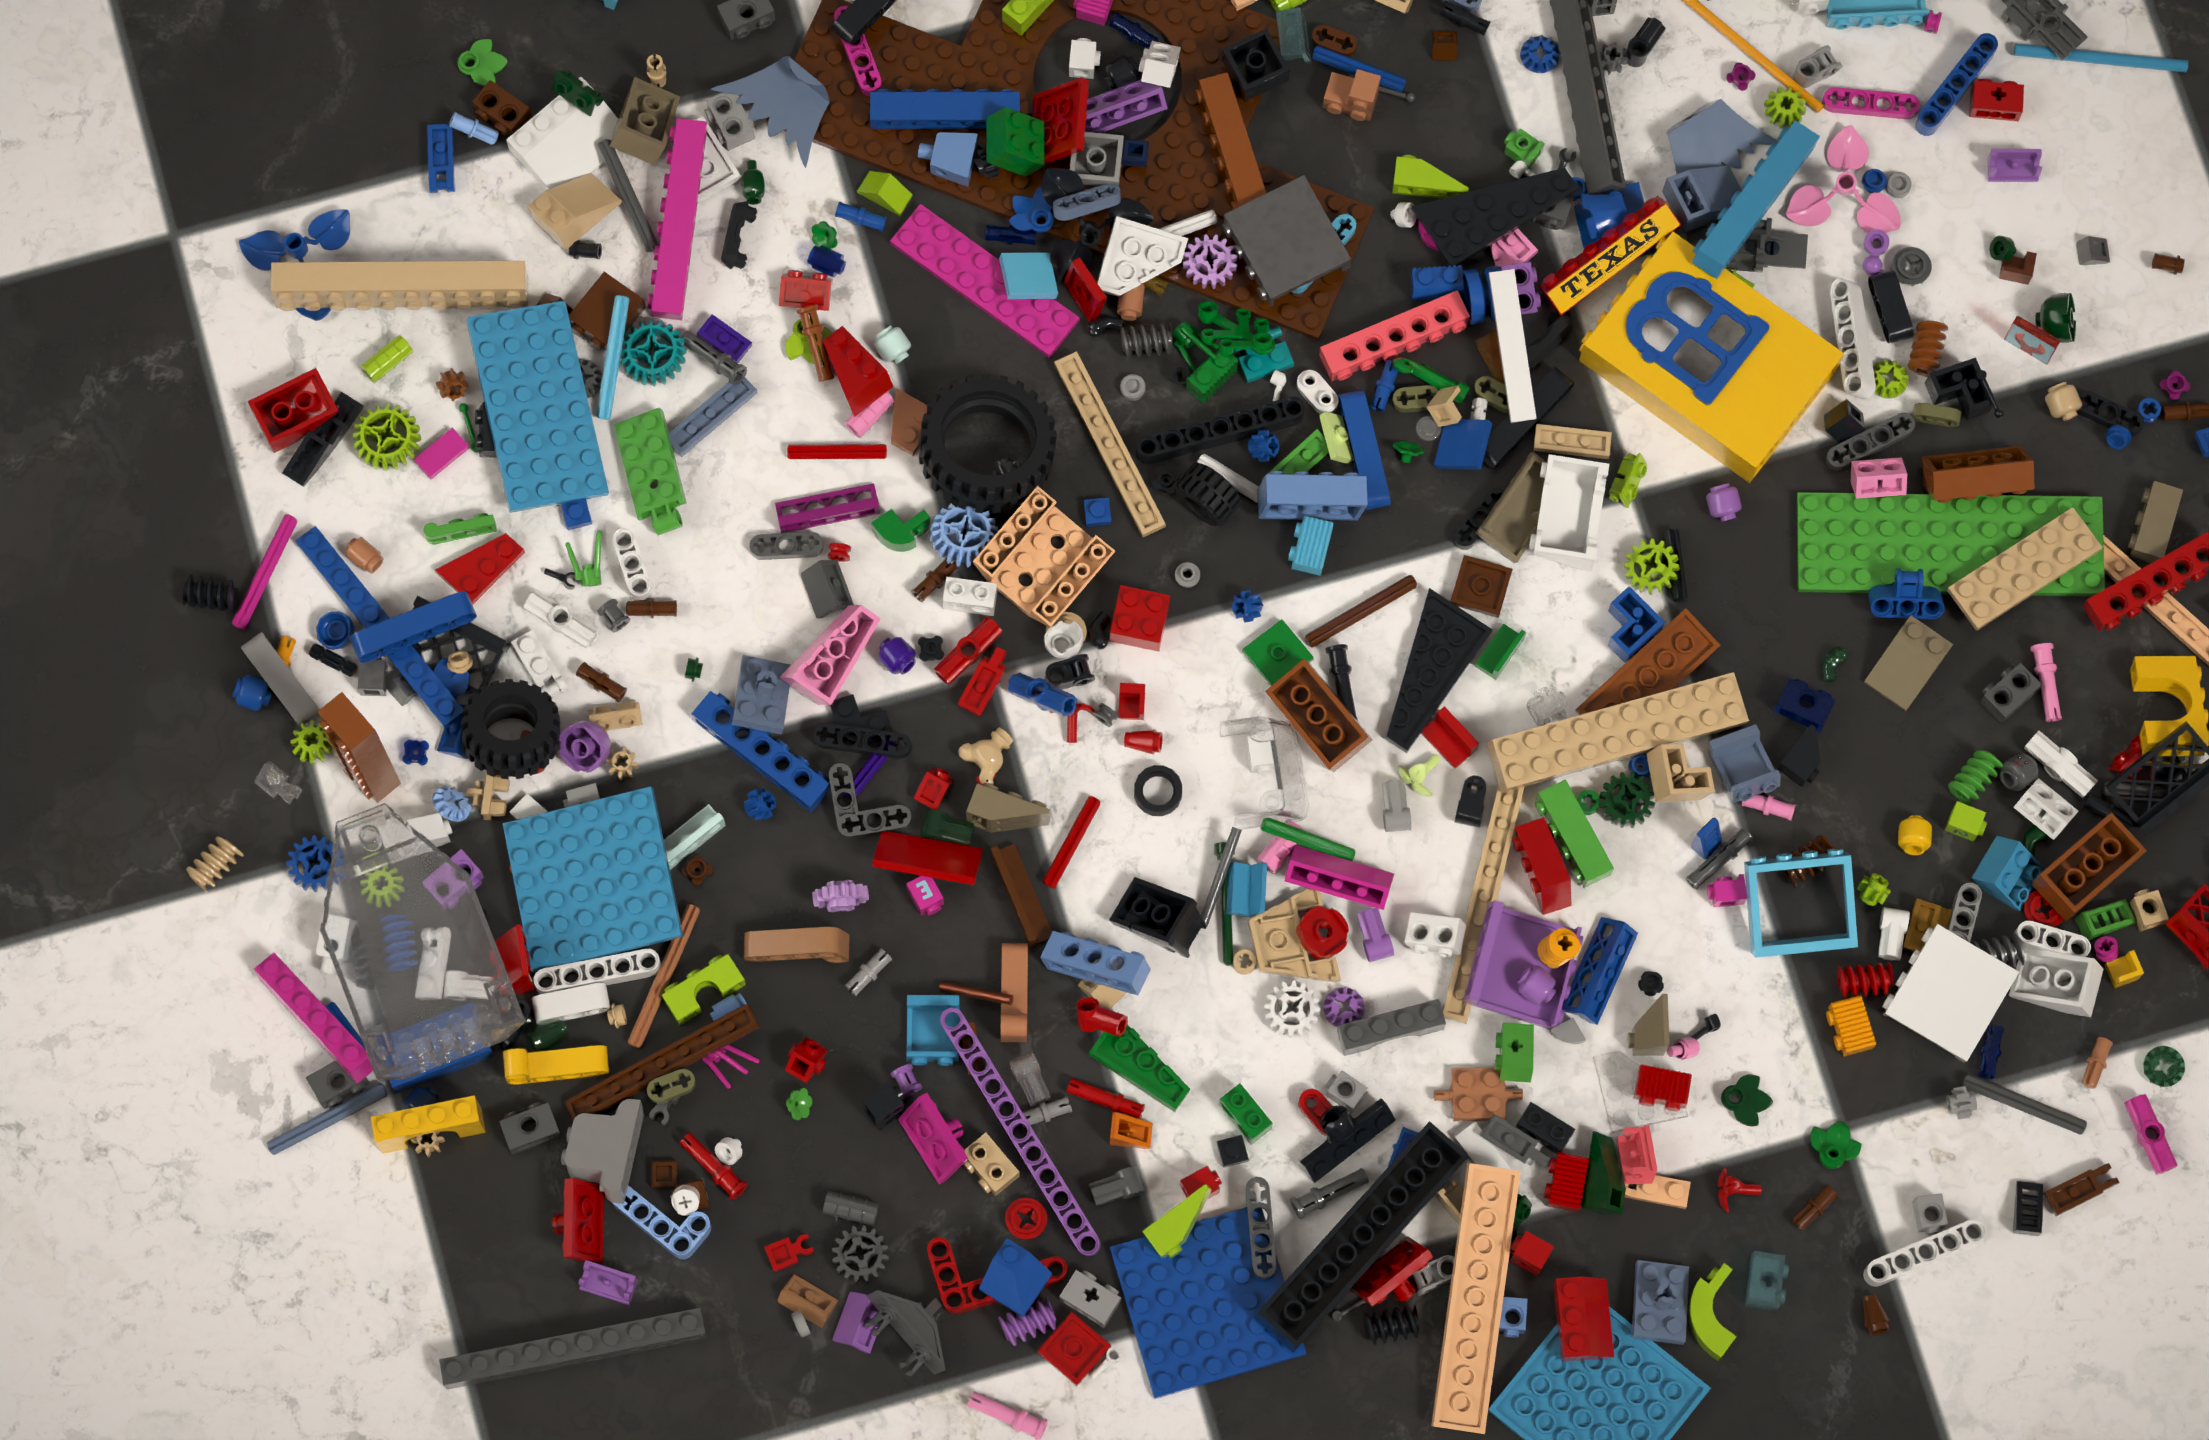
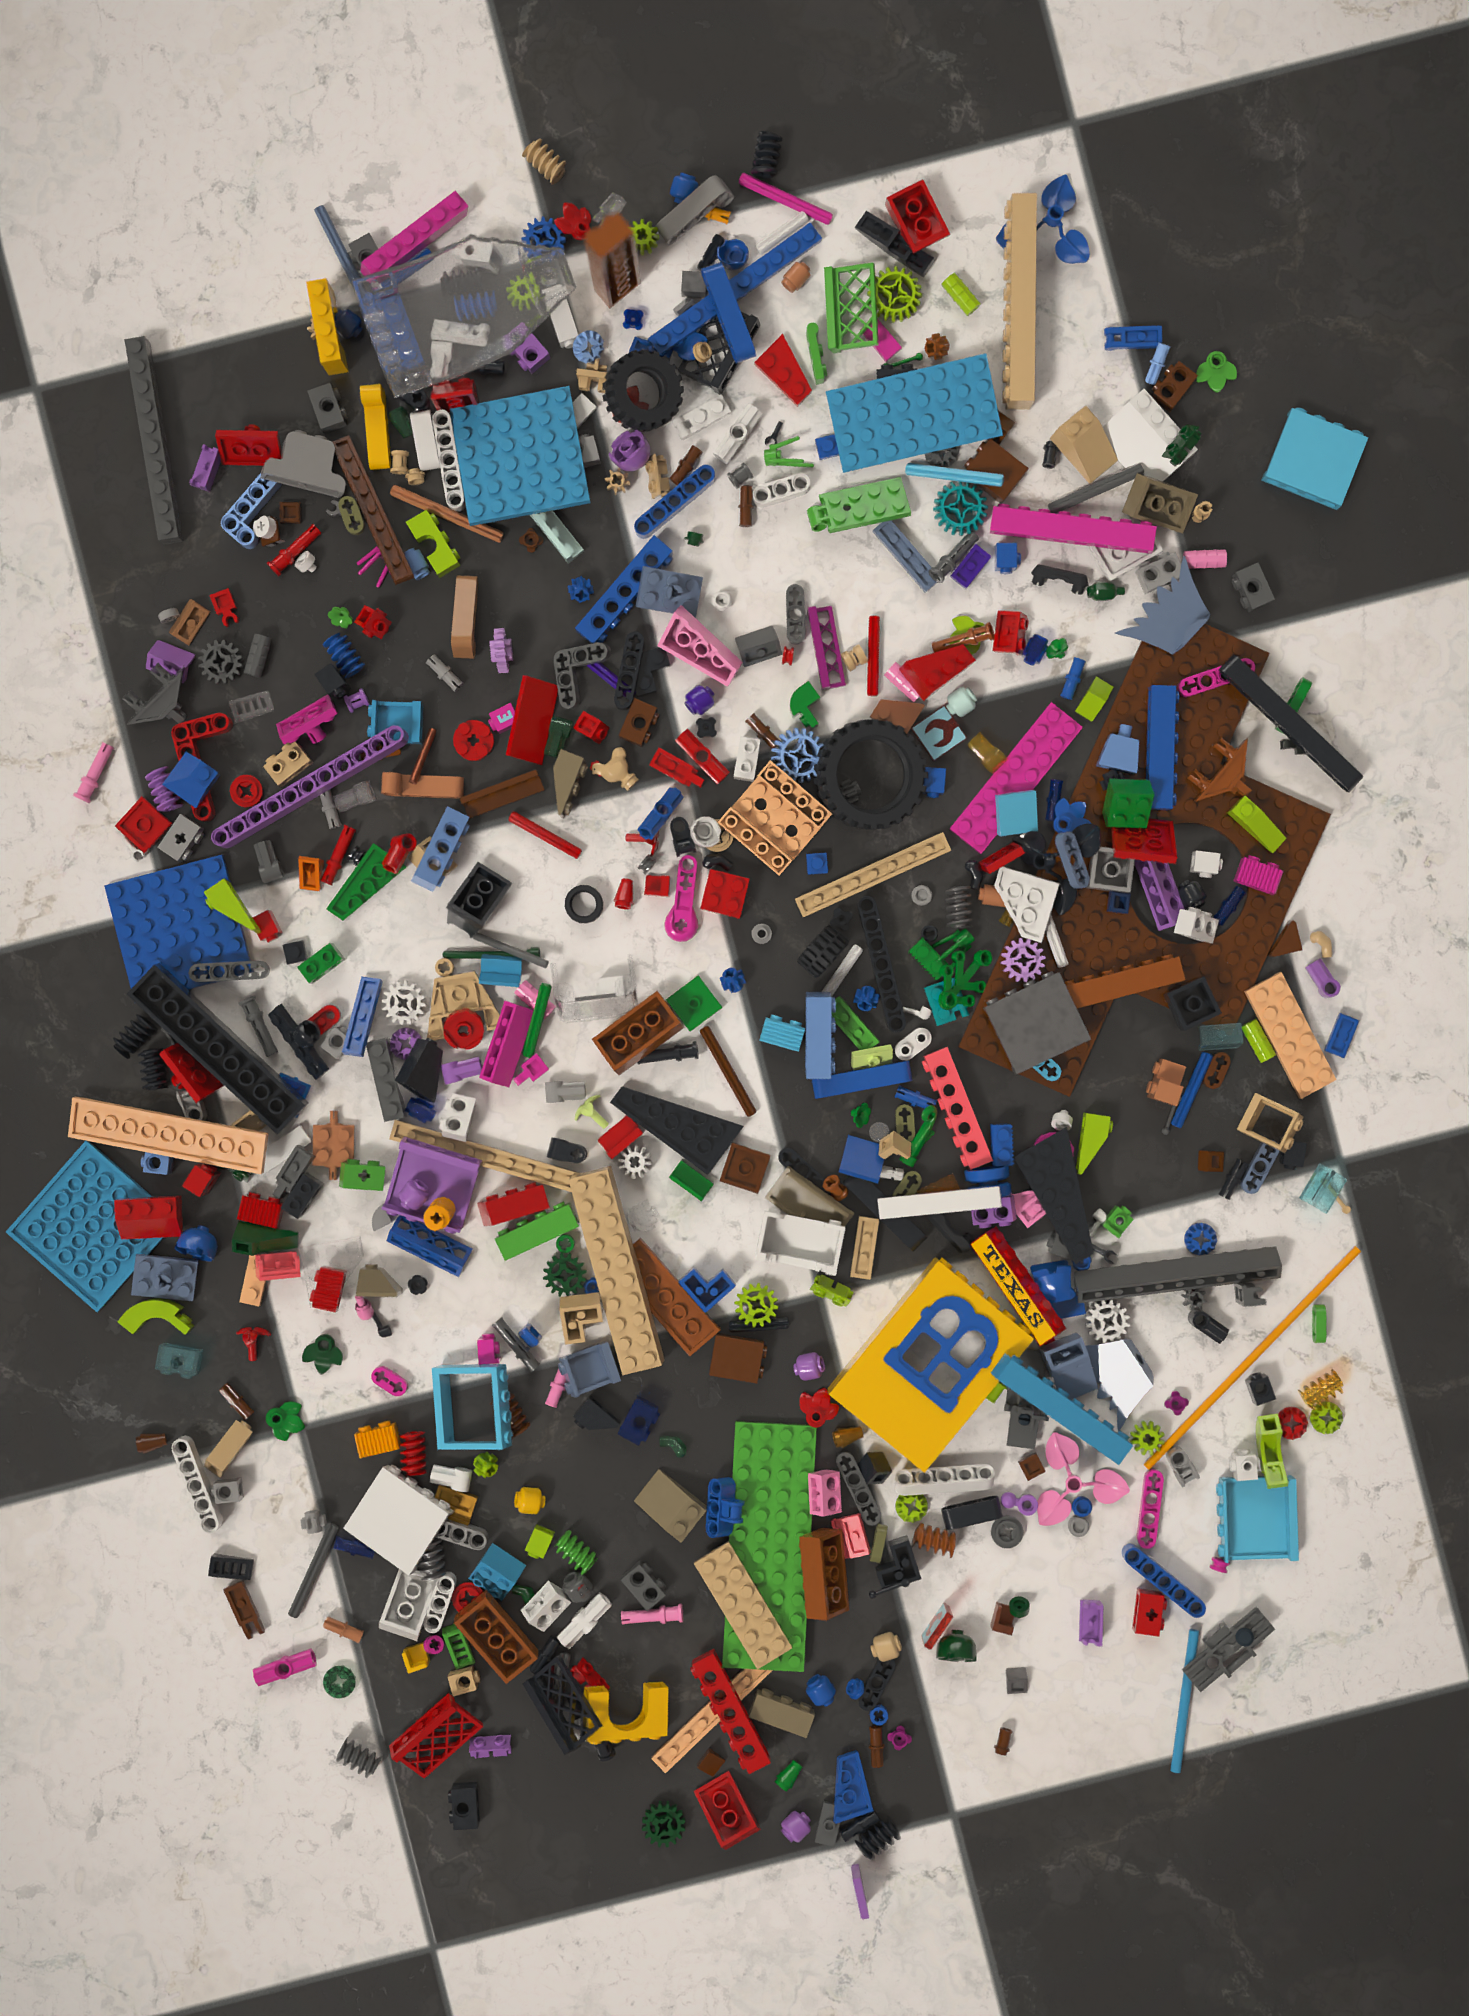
camera: 95 degrees right, 15 degrees up
(292, 824) = (574, 220): none -> red plate
(307, 575) = (782, 232): none -> white axle
(399, 506) = (833, 307): none -> bright green fence
(599, 1035) = (399, 462): none -> tan bush
(641, 683) = (678, 492): none -> blue beam
(711, 67) = (1206, 558): none -> bright pink axle
(713, 297) = (1006, 557): none -> blue brick
(771, 628) = (716, 600): none -> white plate
(840, 472) = (851, 660): none -> tan wheel
(848, 1095) = (343, 655): none -> blue piece
(923, 1232) = (248, 699): none -> clear slope
(930, 371) = (938, 733): none -> medium azure tile
(935, 741) = (639, 710): none -> reddish brown brick
(959, 308) = (990, 756): none -> clear yellow piece
(964, 944) = (482, 732): none -> red plate
(978, 32) = (1228, 777): none -> dark orange connector
(991, 366) = (935, 782): none -> blue brick
(1105, 1074) = (356, 855): none -> black bush
(1153, 670) = (683, 906): none -> dark pink beam
(1312, 1057) = (362, 1016): none -> plate
(1348, 1351) = (133, 1036): none -> black piece
(1369, 847) = (532, 1068): none -> dark pink plate
(1377, 980) = (422, 1070): none -> black slope
(1428, 983) = (420, 1110): none -> clear blue brick
(1485, 726) = (642, 1160): none -> white gear
(1497, 478) = (833, 1185): none -> dark orange bush
(1615, 1258) = (197, 1243): none -> blue cylinder
(1653, 161) = (1102, 1328): none -> white gear
(1719, 588) = (737, 1358): none -> reddish brown brick
(1770, 1012) = (386, 1385): none -> dark pink beam
(1771, 490) = (819, 1405): none -> red plate
(1807, 457) = (846, 1436): none -> pearl gold cone
(1829, 239) = (1031, 1466): none -> reddish brown plate
(1877, 1213) = (228, 1448): none -> tan slope
(1928, 443) = (854, 1535): none -> coral plate
(2123, 477) = (820, 1690): none -> blue head

